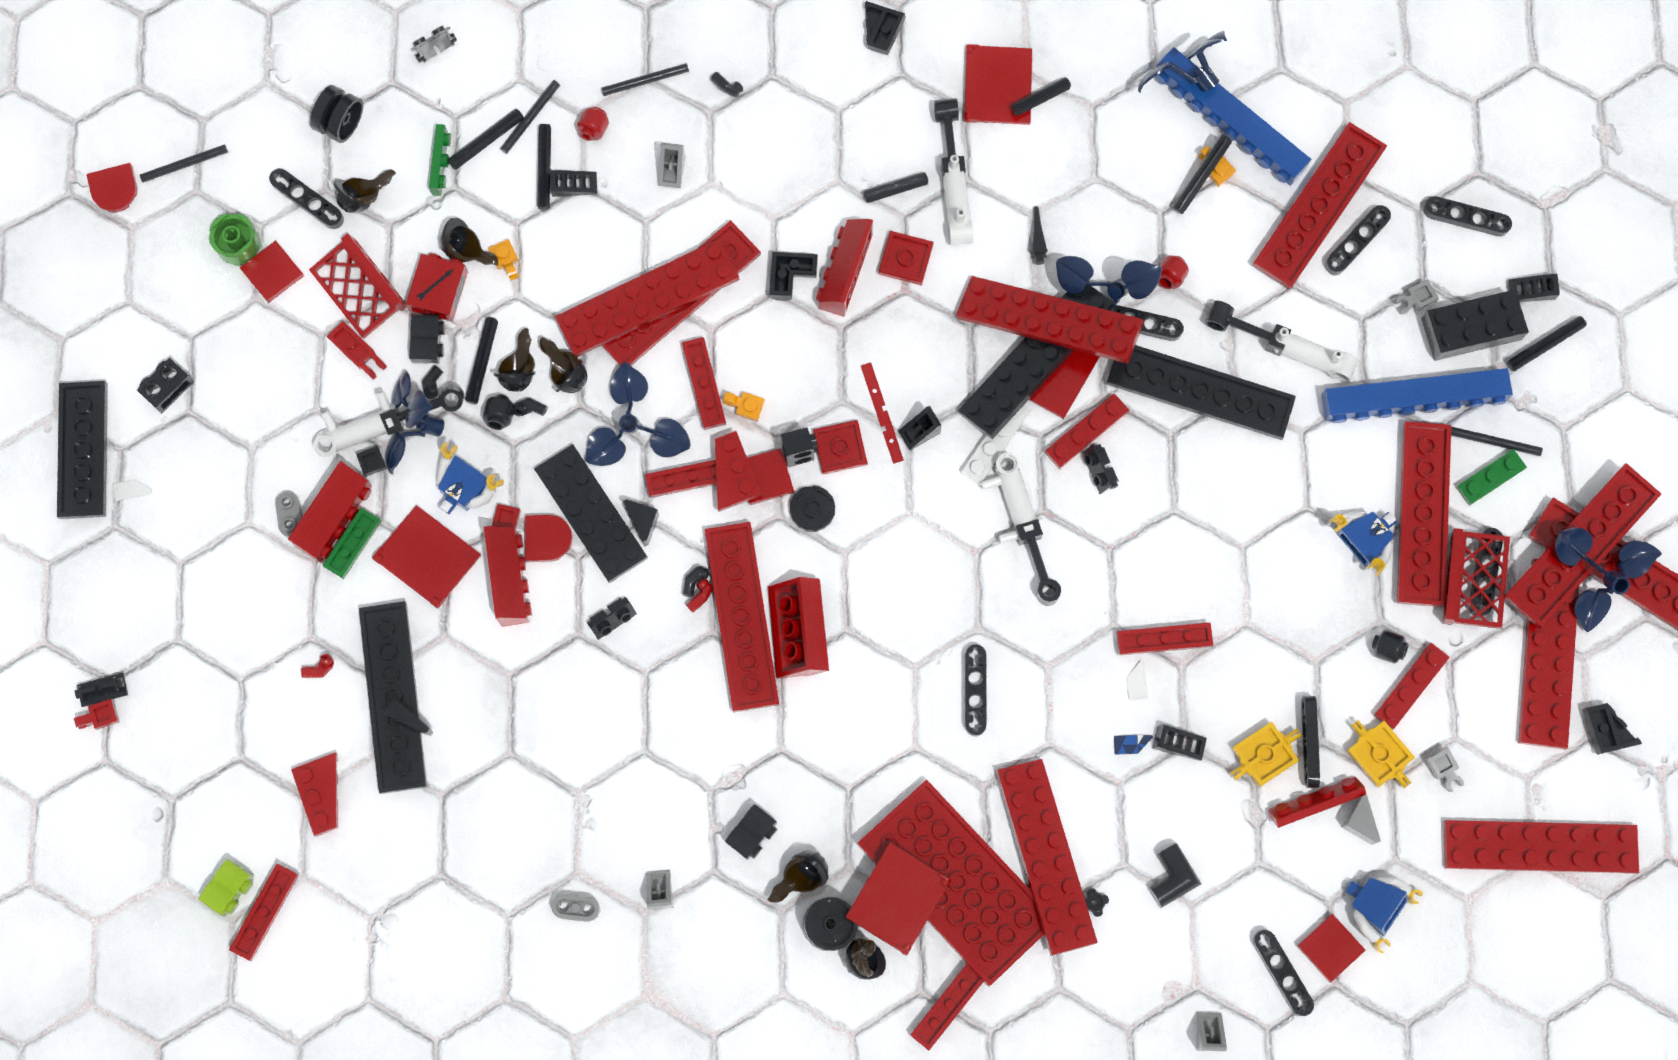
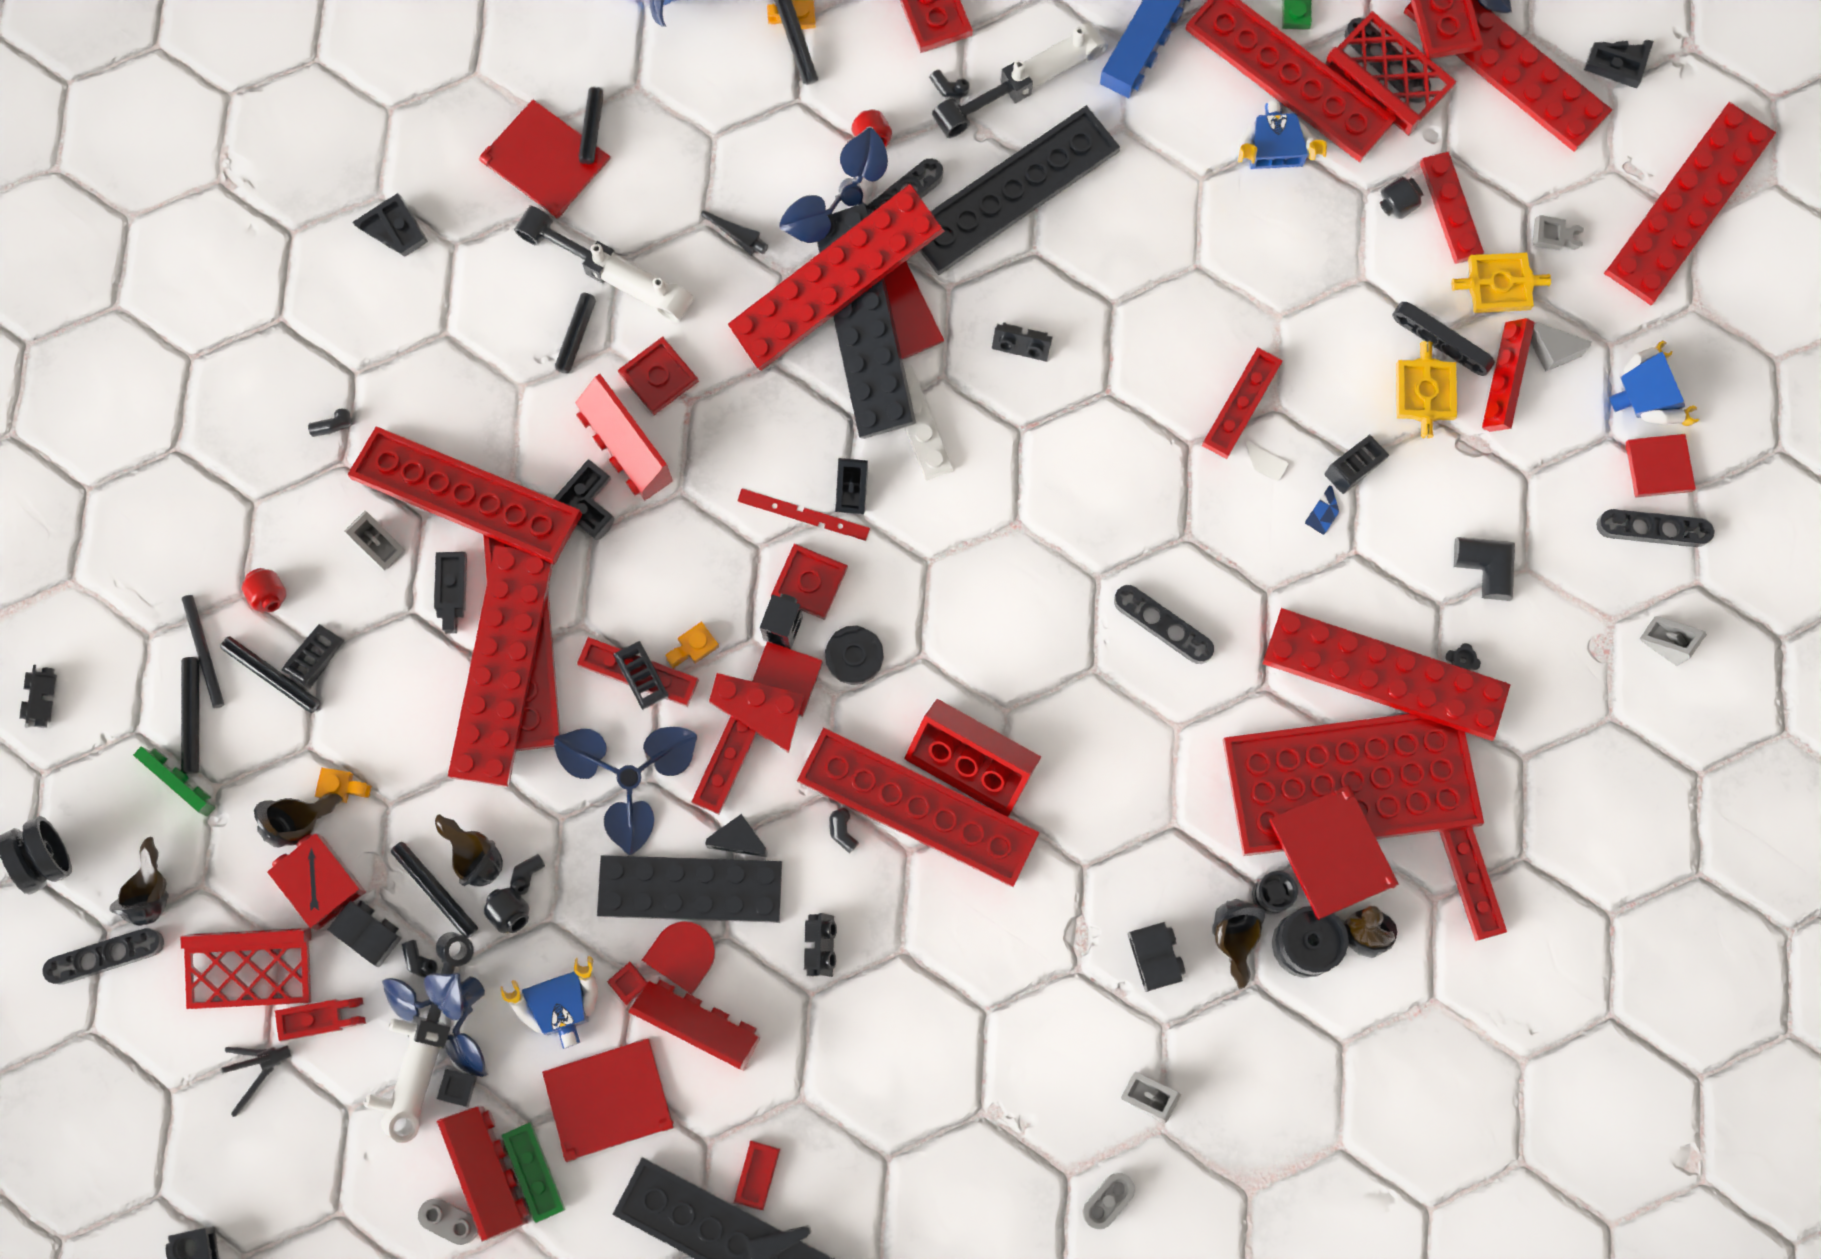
camera: 55 degrees left, 0 degrees up
(233, 226) = (69, 1065): bright green brick -> none
(272, 271) = (156, 1052): red tile -> none
(311, 337) = (265, 1057): none -> black plant
(443, 679) = (757, 1175): none -> red tile
(566, 370) = (514, 804): piece -> none
(645, 79) = (257, 503): black bar -> none
(674, 232) = (450, 588): none -> black hinge
(703, 365) = (629, 652): none -> black slope
(705, 591) = (867, 834): red arm -> none
(739, 197) = (465, 494): none -> red plate
(846, 880) = (1275, 892): none -> black wheel
(1026, 525) = (1024, 452): white piece -> none
(1086, 431) = (973, 328): red plate -> none
(1241, 301) = (949, 89): none -> black arm

